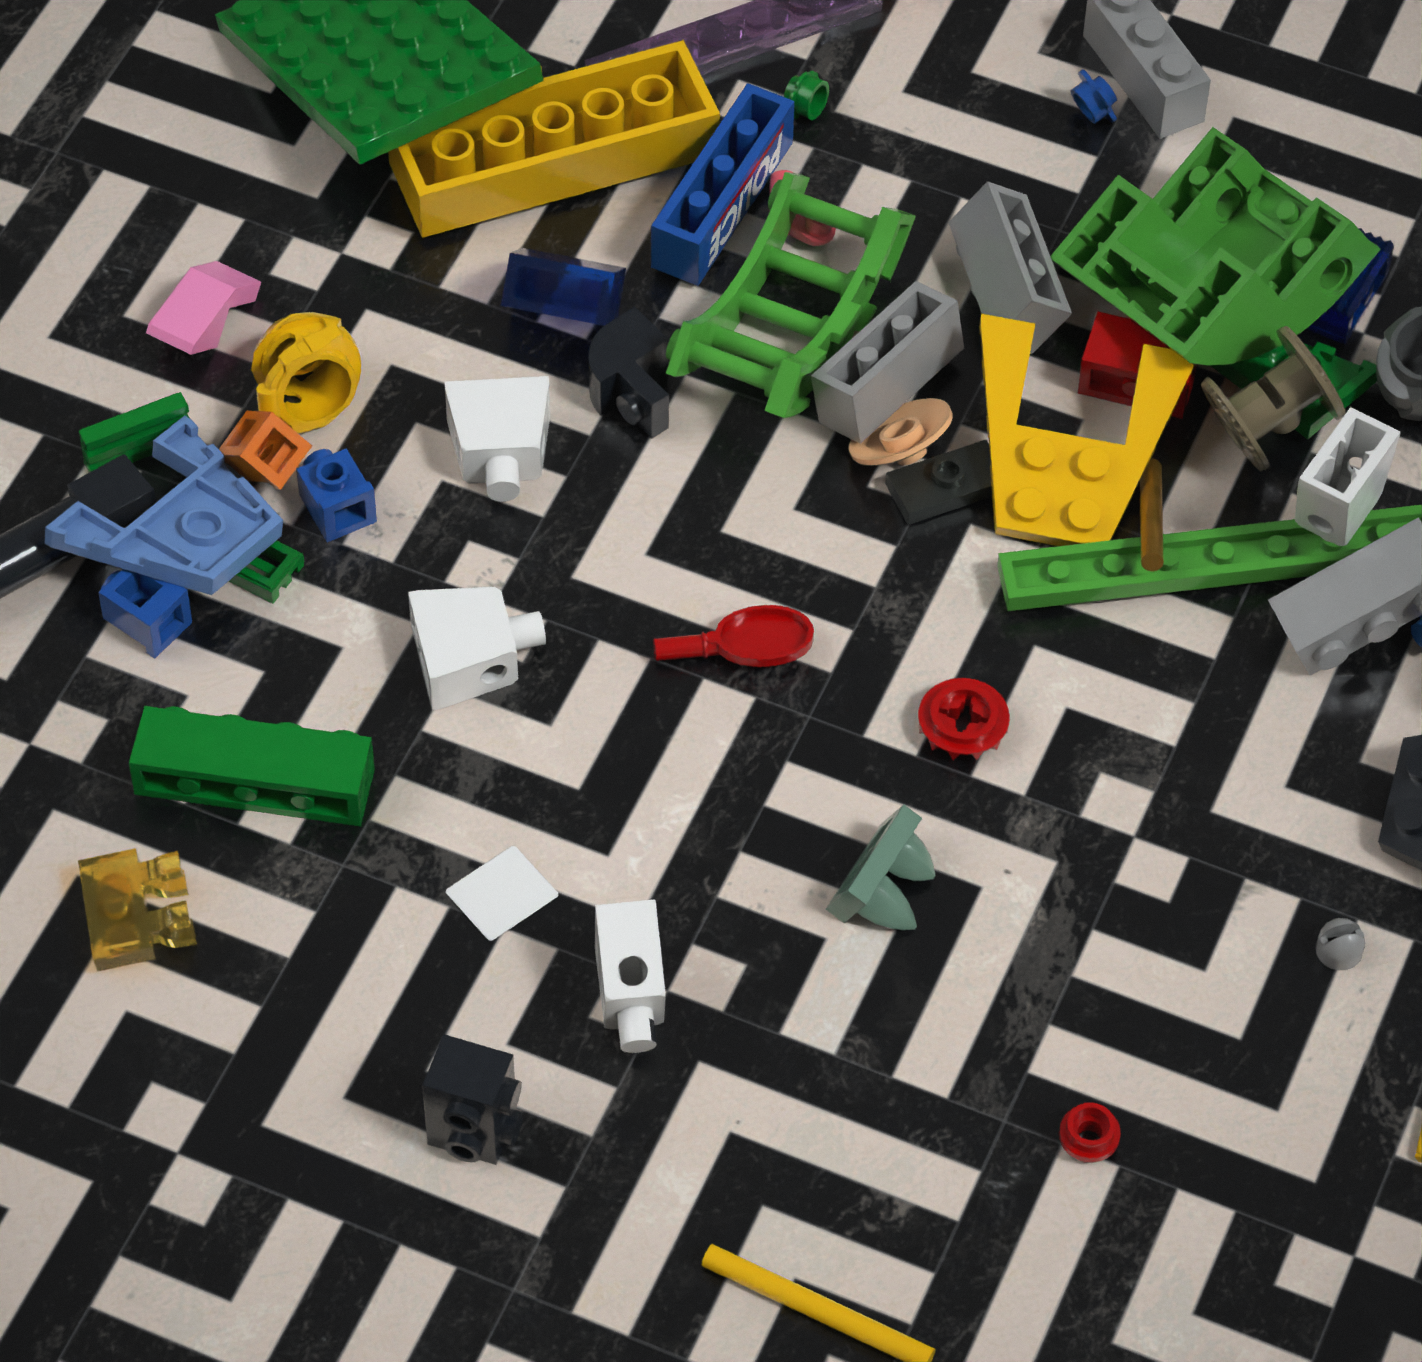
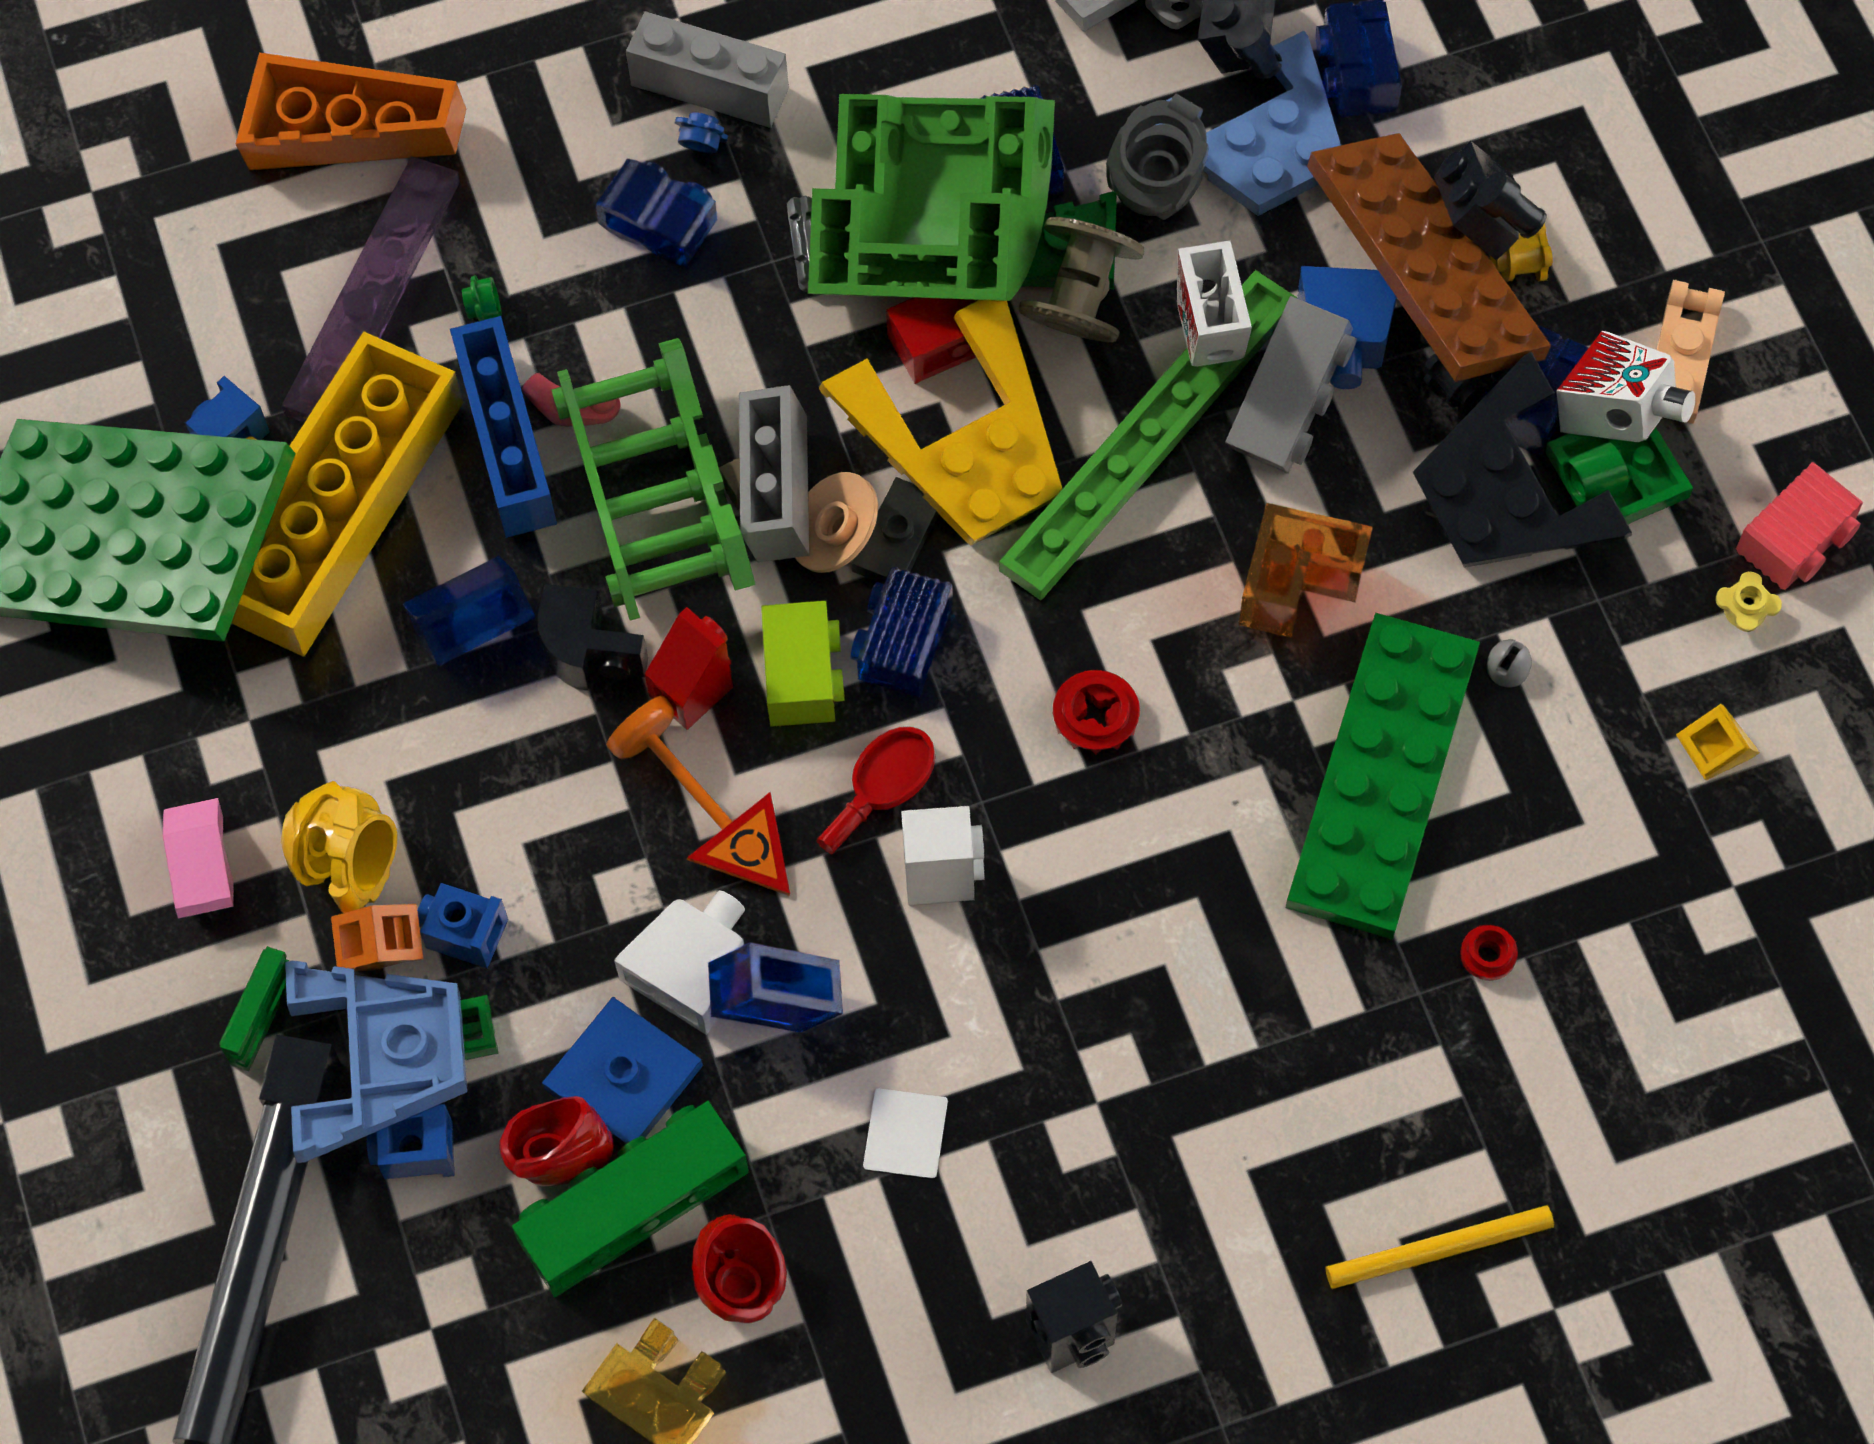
camera: 40 degrees left, 10 degrees up
(239, 682) = (556, 1141): none -> red hair
(271, 870) = (738, 1269): none -> red hair
(342, 681) = (624, 1071): none -> blue plate
(499, 431) = (536, 770): white torso -> none
(501, 700) = (775, 987): none -> clear blue piece
(538, 35) = (229, 415): none -> blue brick
(597, 604) = (744, 847): none -> orange piece
(630, 971) = (1066, 1099): white torso -> none
(678, 446) = (691, 667): none -> red slope
(722, 710) = (941, 855): none -> white piece
(769, 508) = (798, 663): none -> lime piece
(867, 887) = (1151, 869): sand green tile -> none
(873, 547) = (903, 632): none -> clear blue brick
(1002, 127) = (657, 211): none -> clear blue brick
(1009, 261) = (781, 322): light grey brick -> none
(1146, 942) = (1383, 776): none -> green plate
(1151, 517) = (1084, 447): pearl gold bar -> none
(1232, 722) = (1296, 555): none -> clear orange brick

